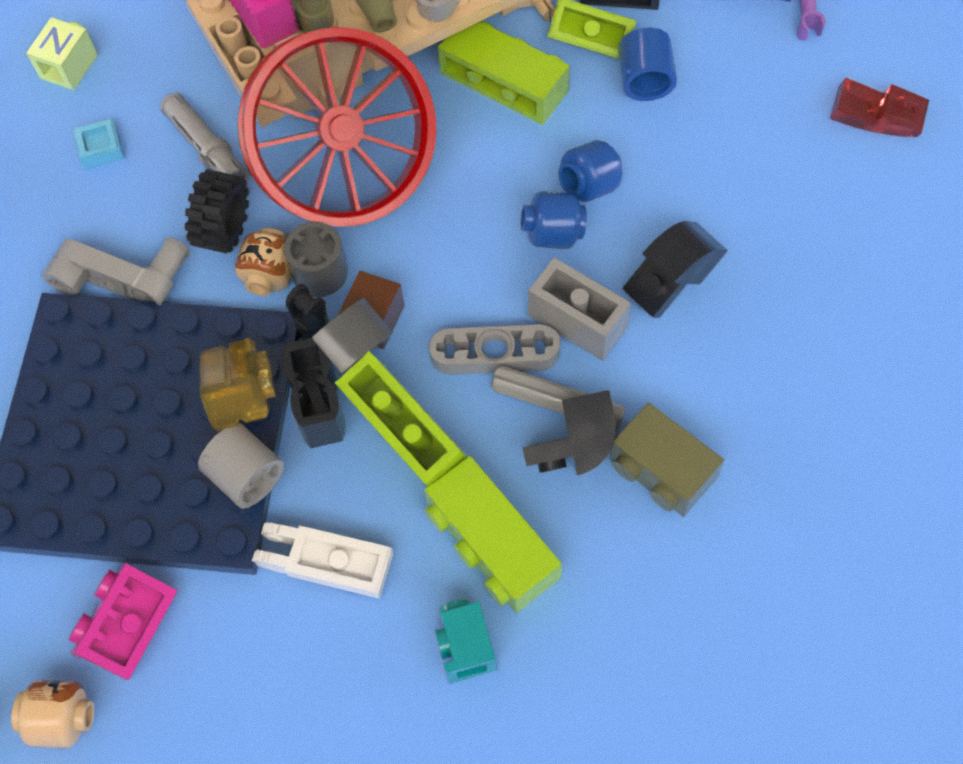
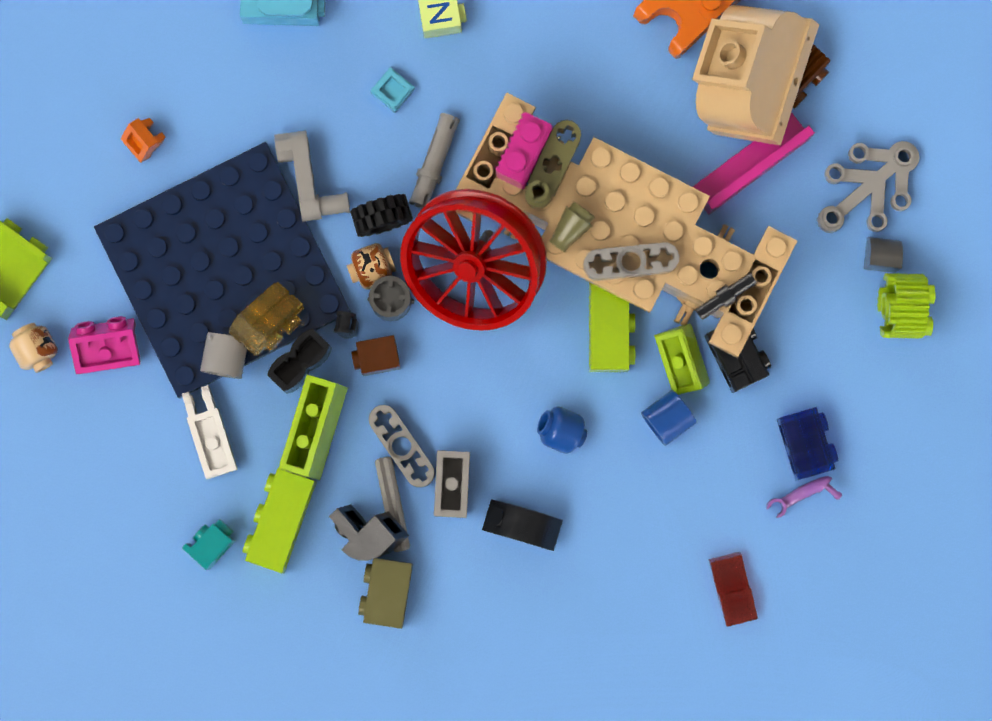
camera: 50 degrees right, 20 degrees up
(352, 335) = (343, 363): dark grey brick -> none
(554, 220) = (511, 428): blue head -> none

